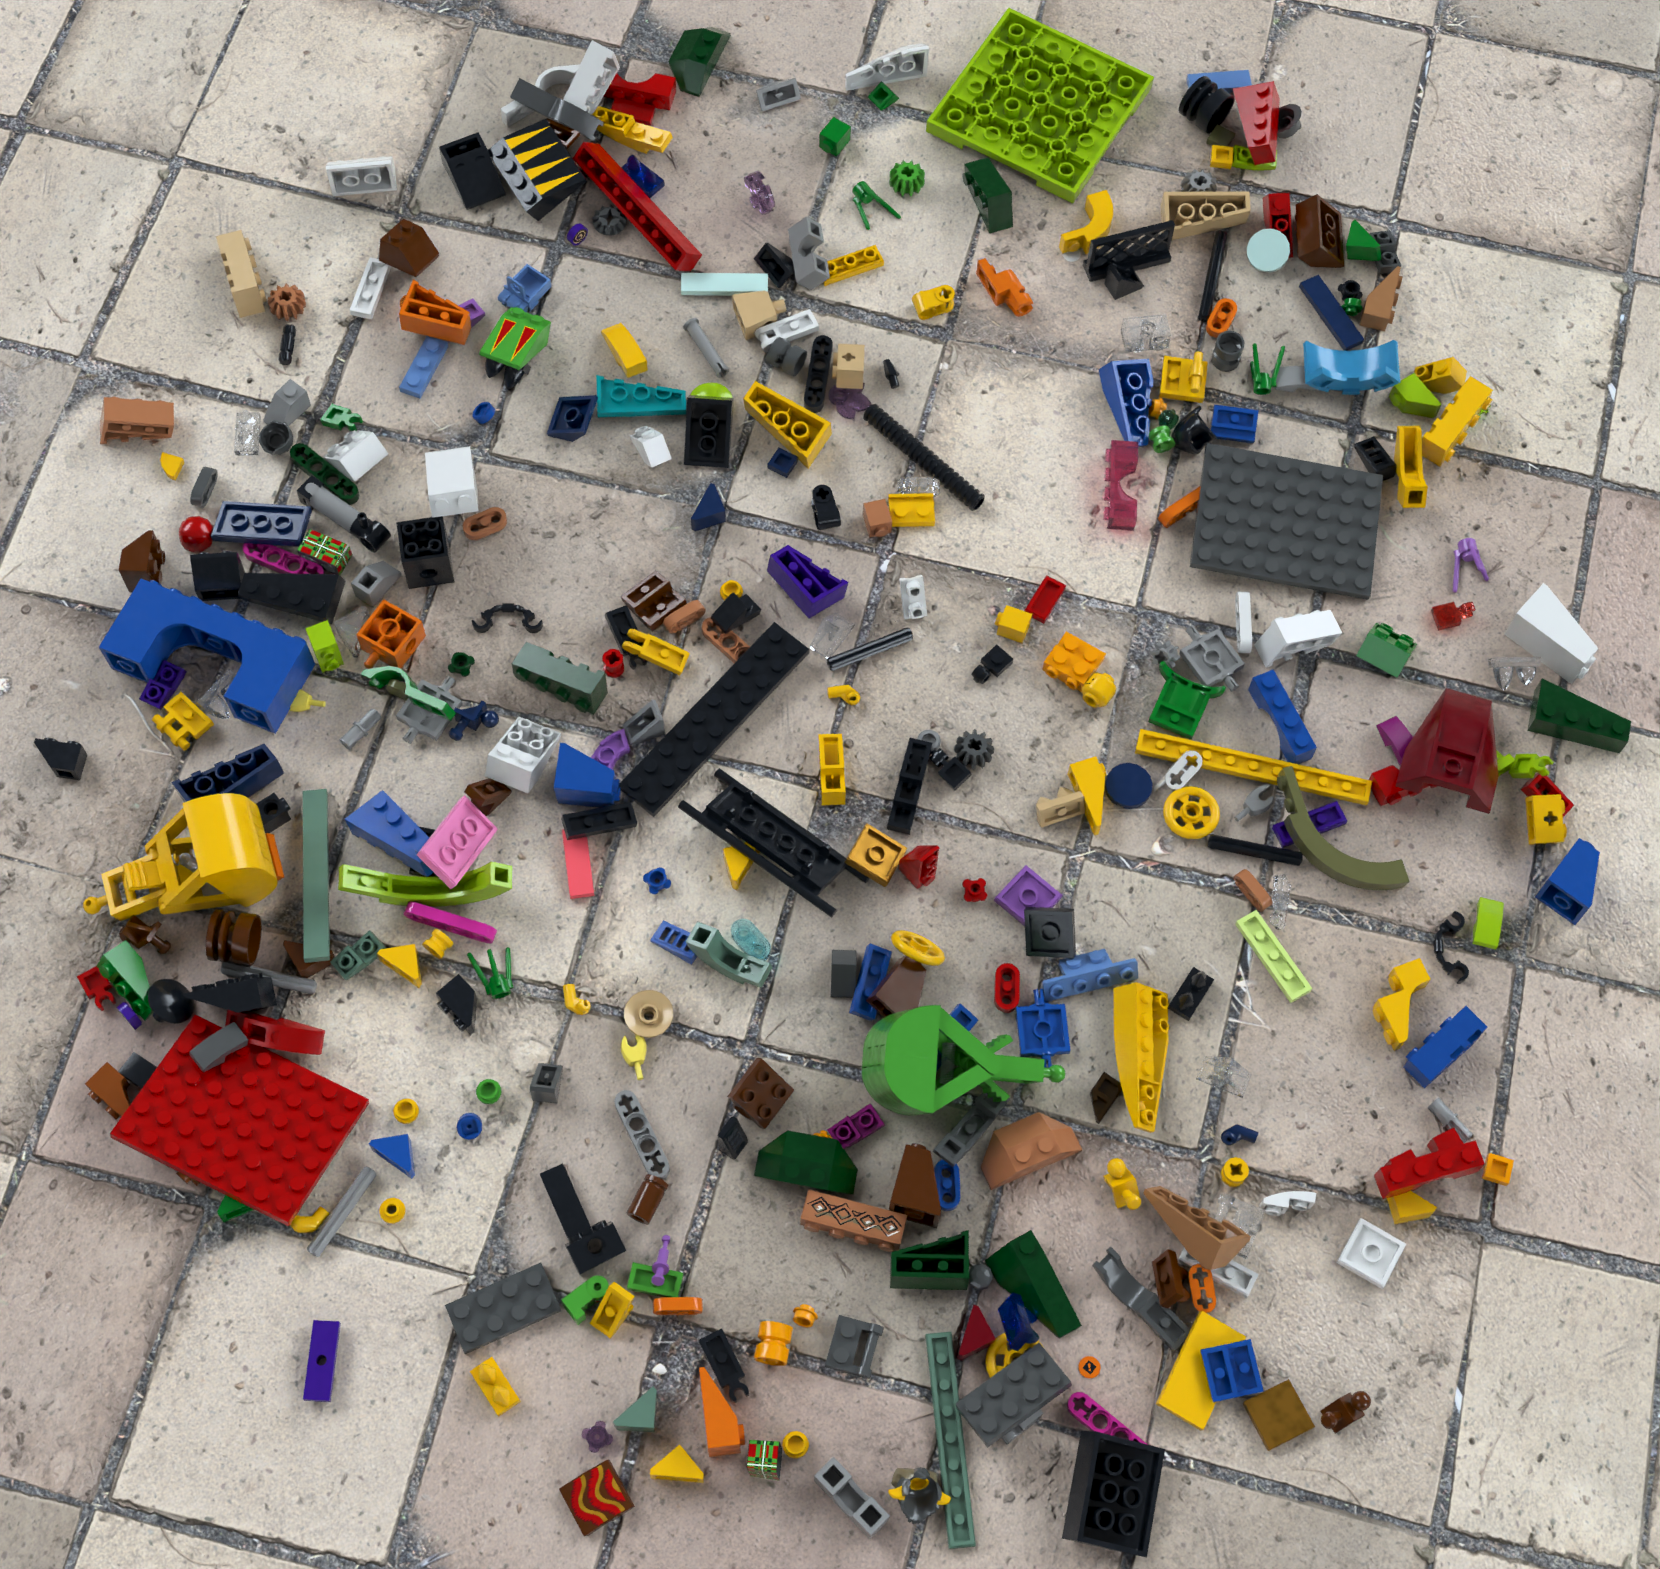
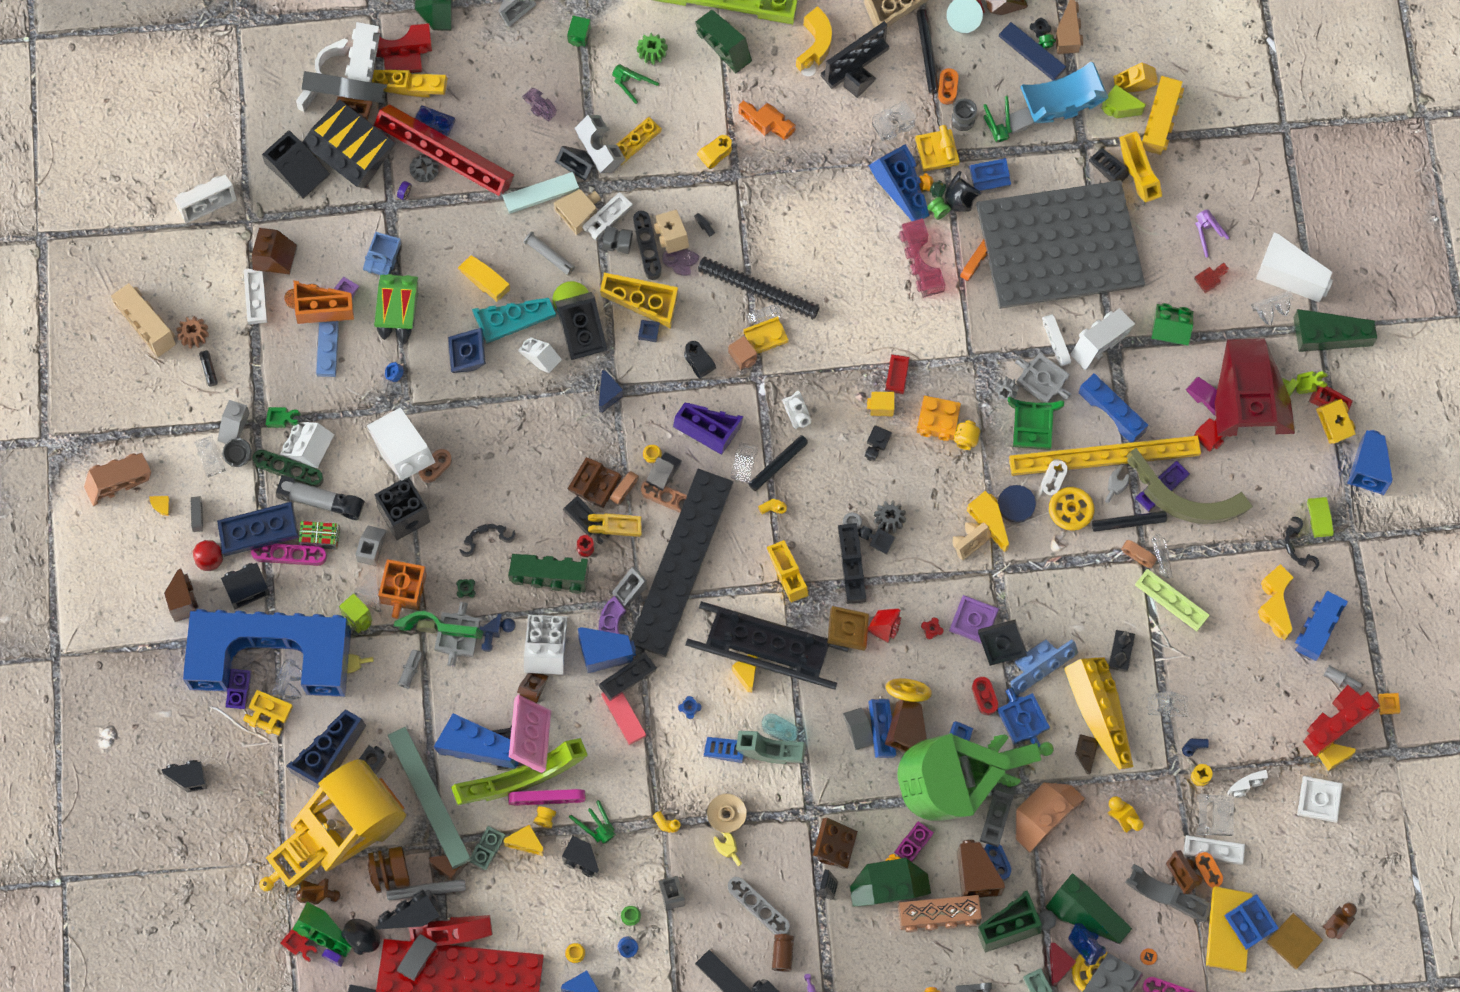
camera: 20 degrees left, 5 degrees up
(299, 594) = (316, 577): black wedge -> none
(1203, 1237) = (1196, 831): medium nougat wedge -> none

